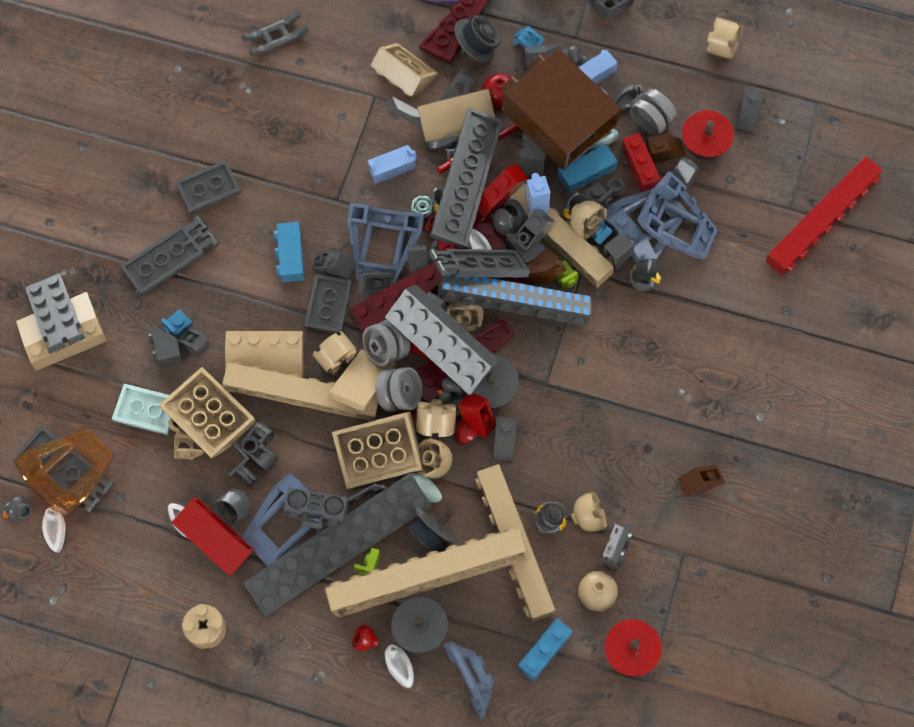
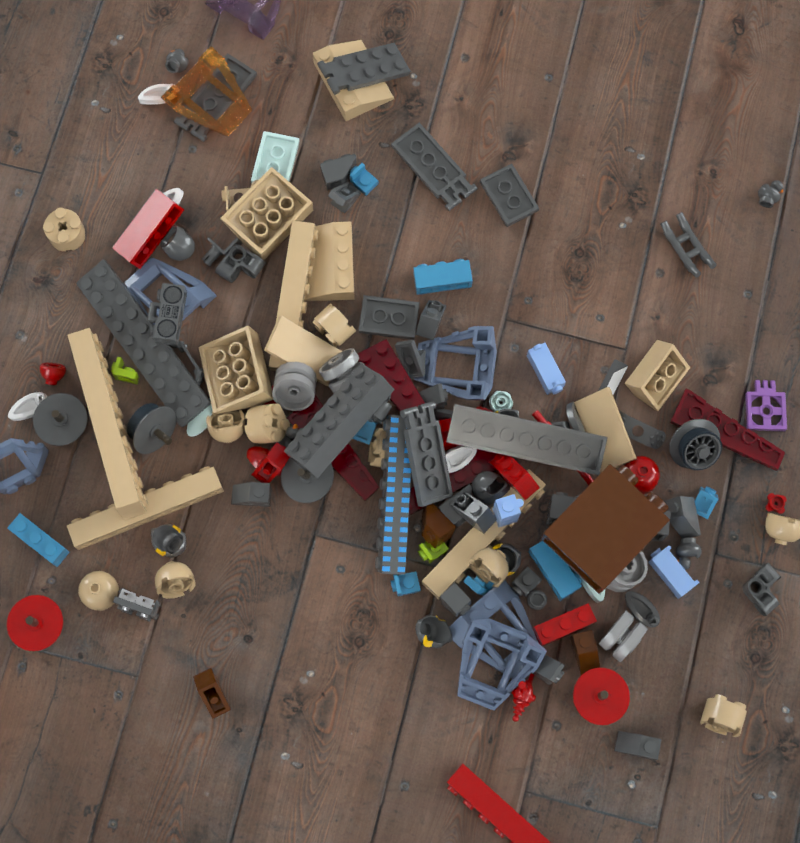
camera: 85 degrees right, 5 degrees up
(599, 300) = (405, 584): none -> dark azure bracket
(707, 203) = (523, 696): none -> red piece

